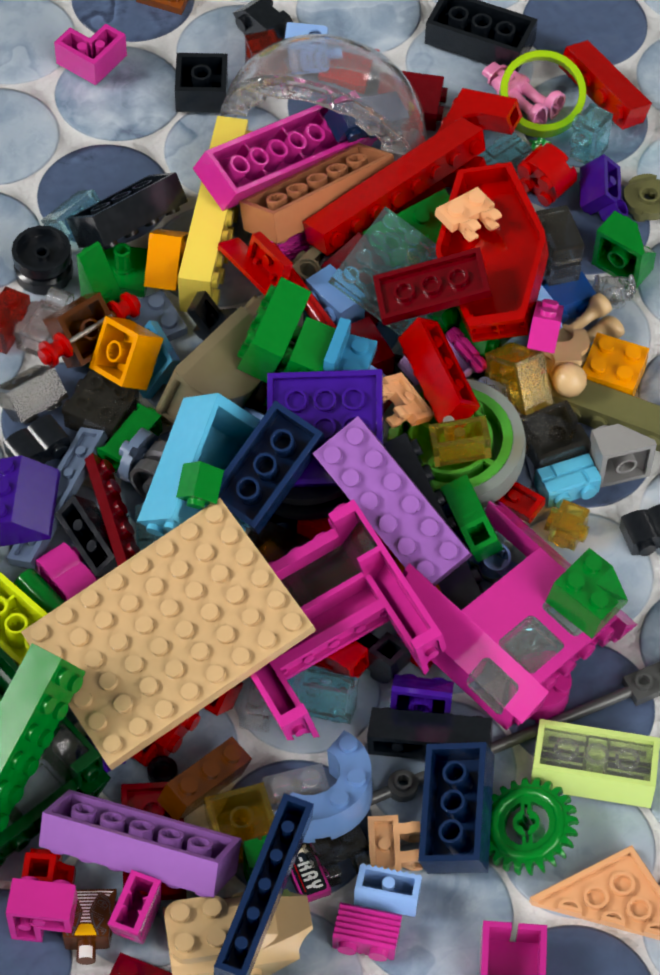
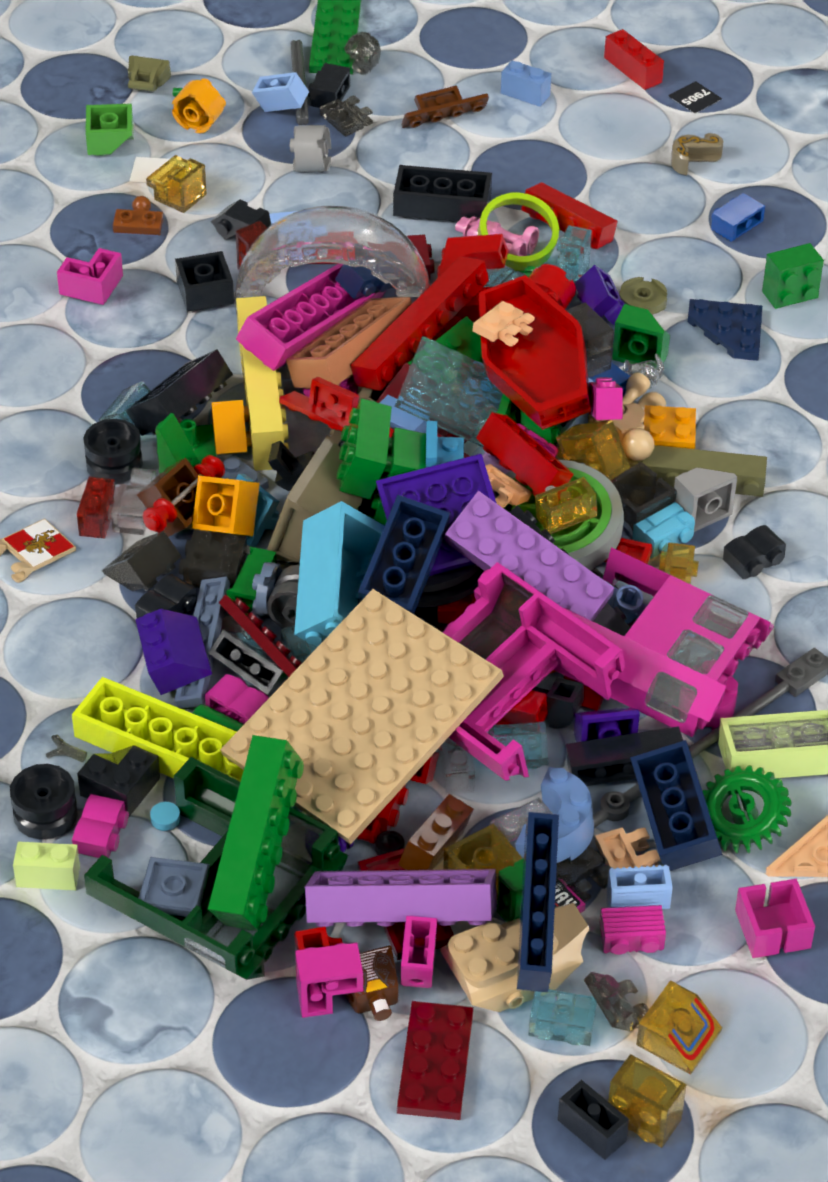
camera: 15 degrees left, 10 degrees down
(199, 484) = (351, 580): green brick -> none
(431, 286) = (493, 386): dark red plate -> none
(472, 518) = (602, 564): green slope -> none
(588, 593) = (729, 600): green slope -> none

